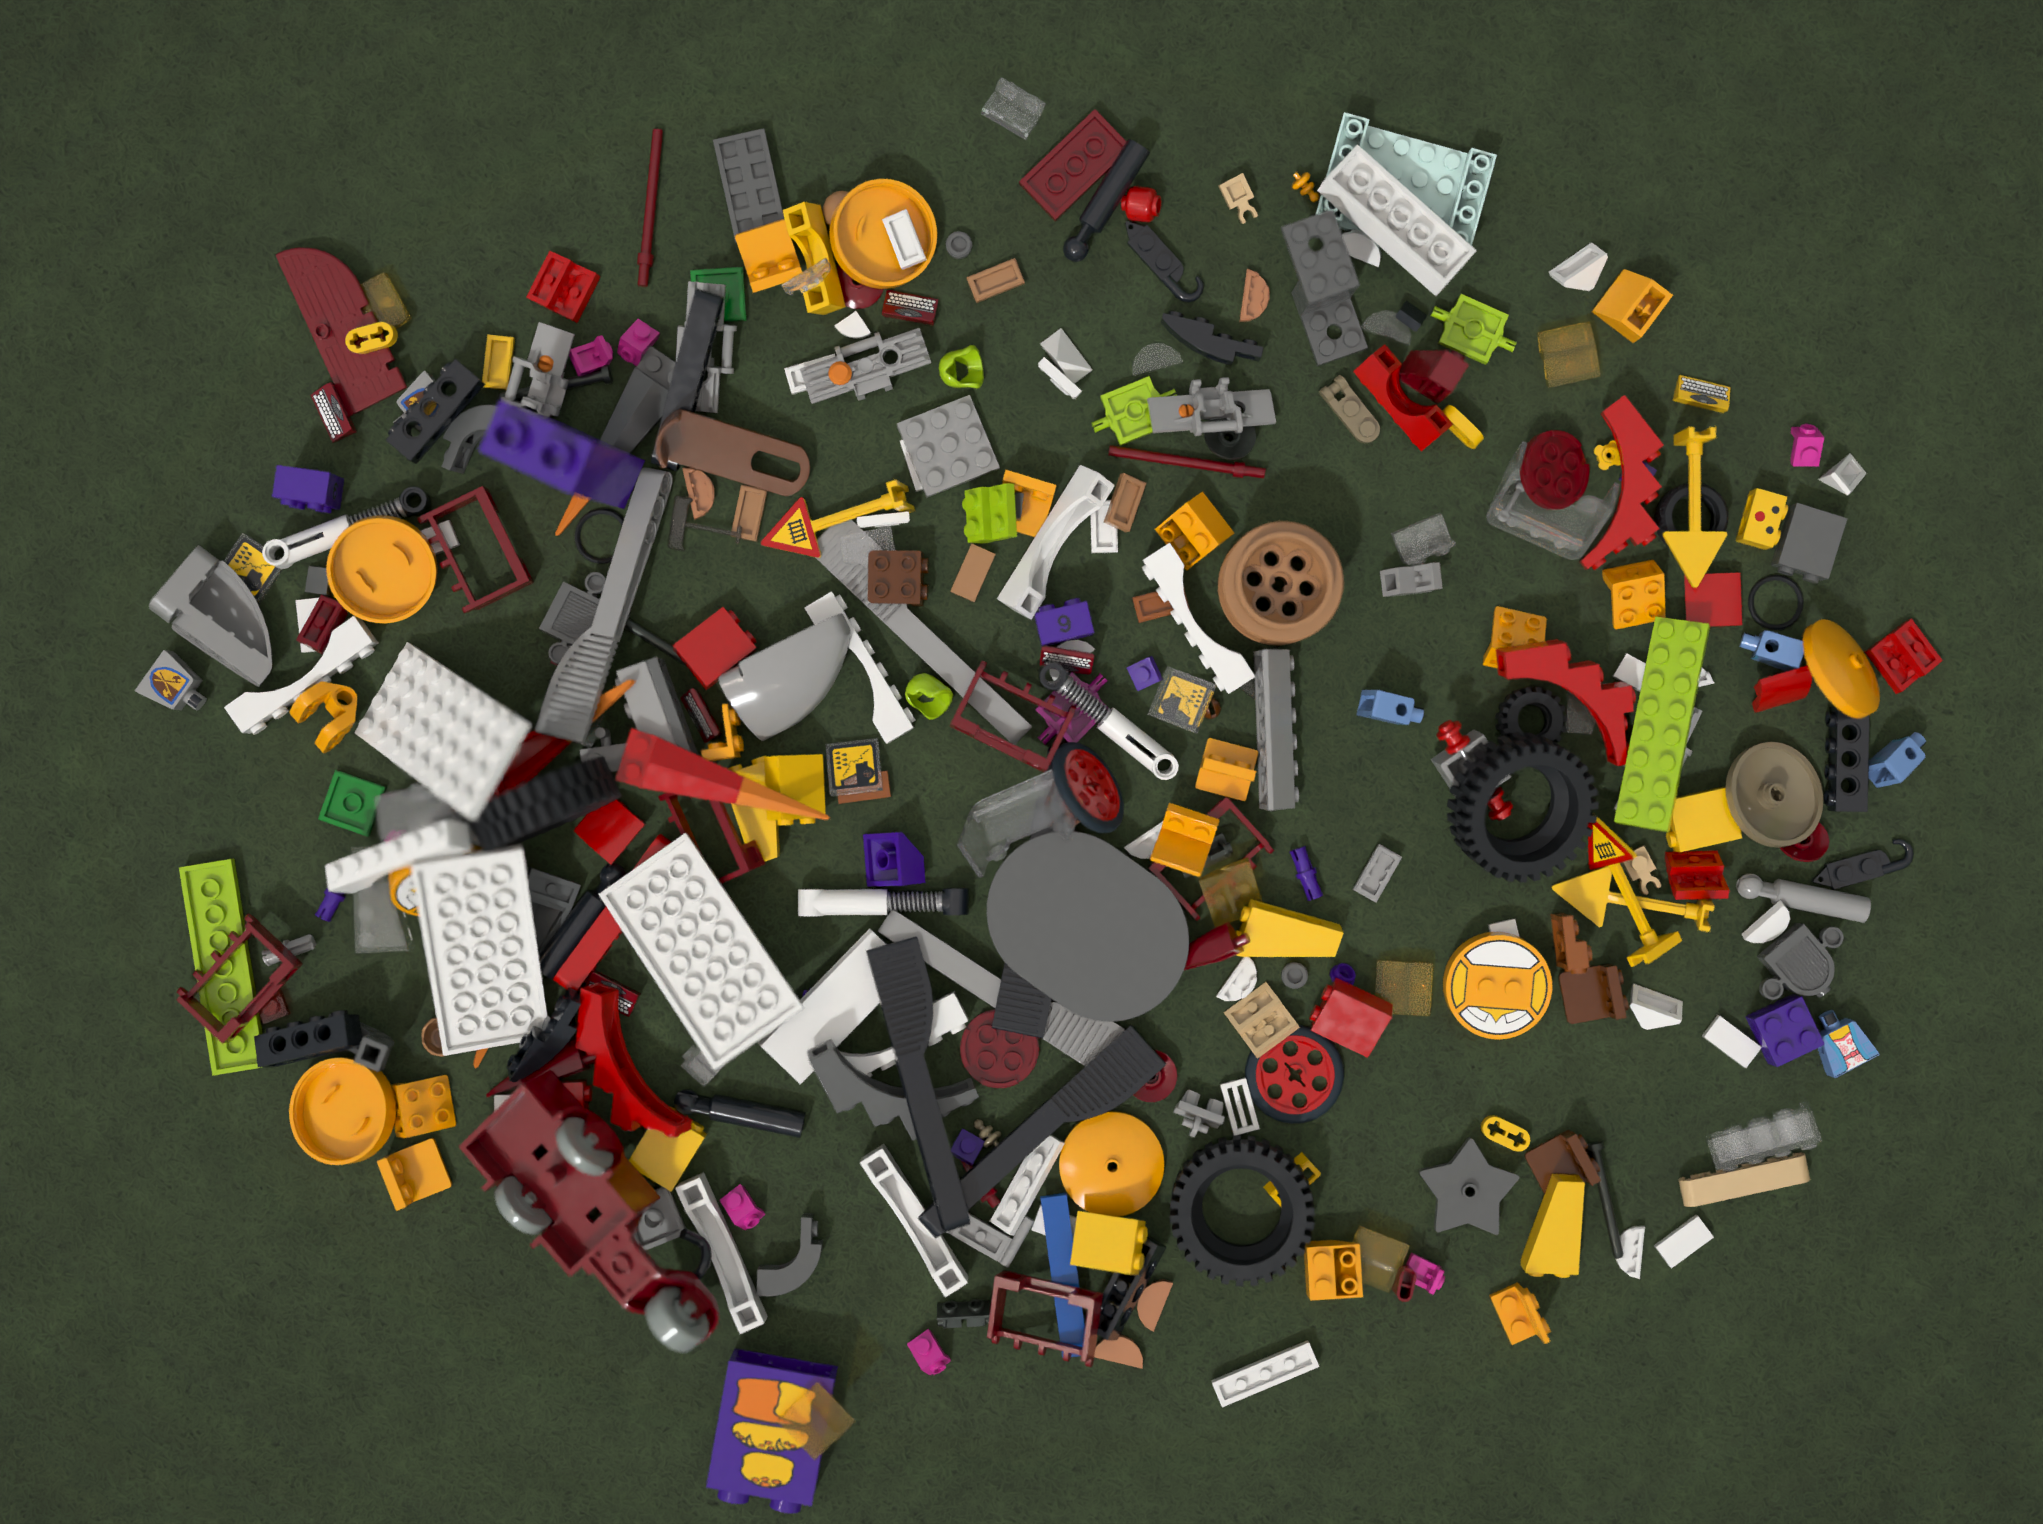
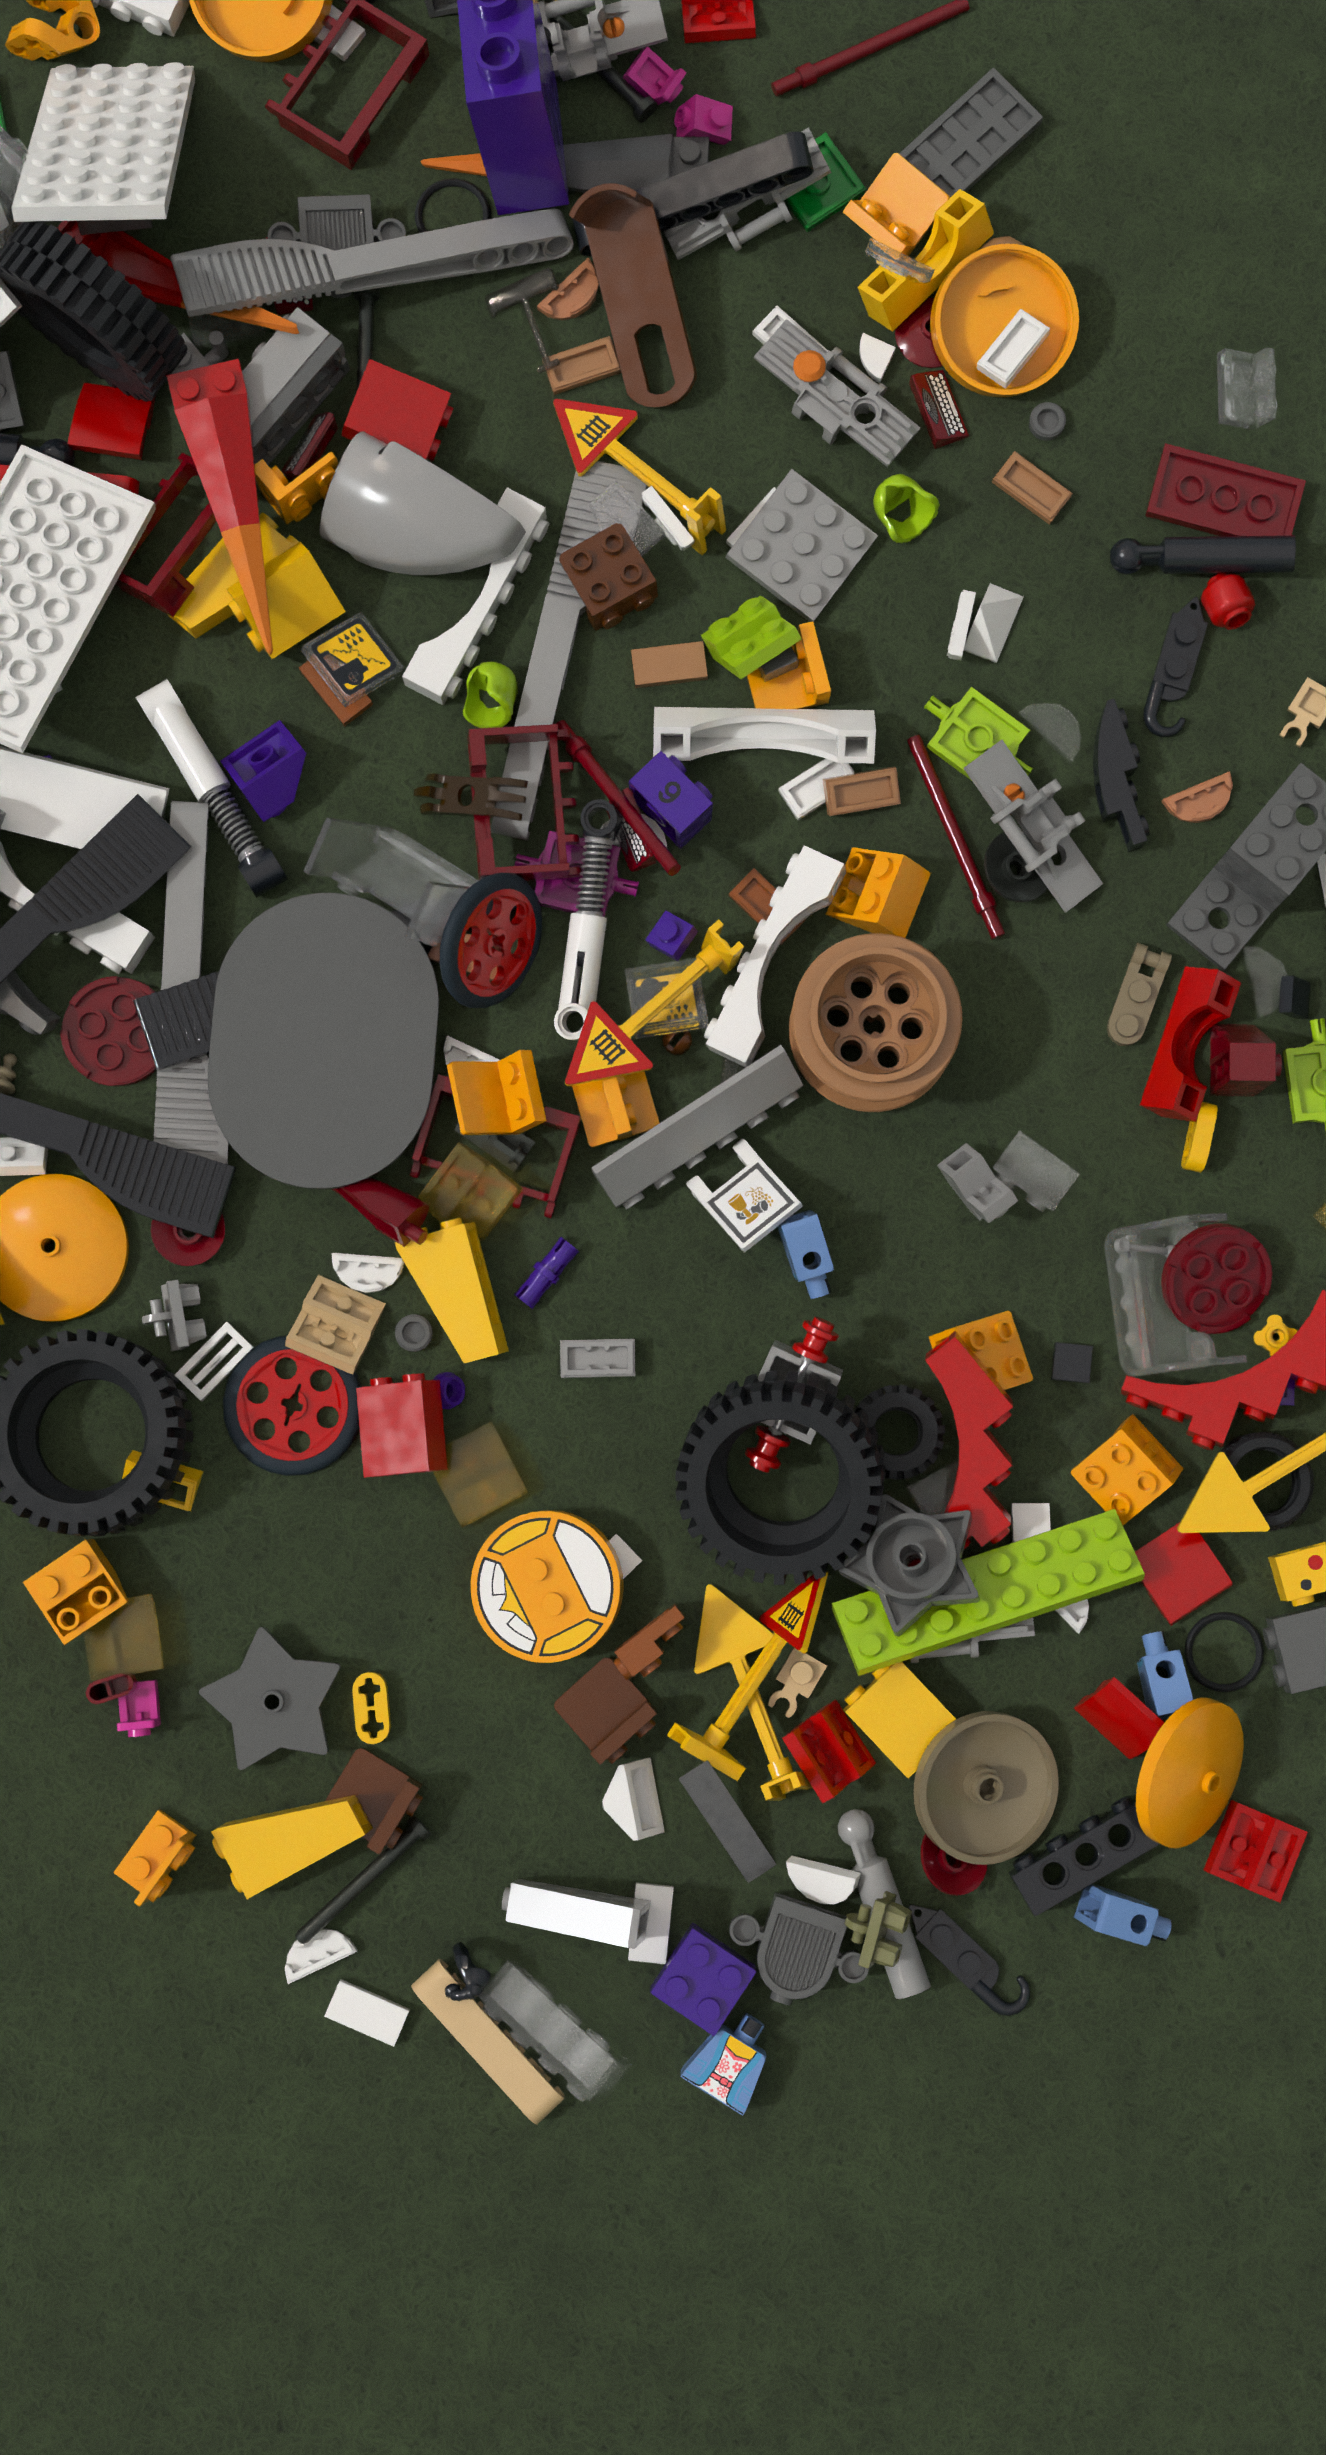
camera: 65 degrees right, 5 degrees down
(996, 661) = (580, 752): none -> dark red bar
(997, 738) = (484, 799): none -> dark brown piece
(1198, 755) = (607, 1048): none -> yellow piece
(1340, 724) = (749, 1202): none -> white flag
(1550, 588) = (1071, 1362): none -> black tile
(1619, 737) = (909, 1536): none -> dark grey plate
(1702, 960) = (727, 1821): none -> flat silver sticker
(1703, 1082) = (577, 1912): none -> slope
(1706, 1166) = (474, 1977): none -> black piece
(1817, 899) = (884, 1915): none -> olive hips

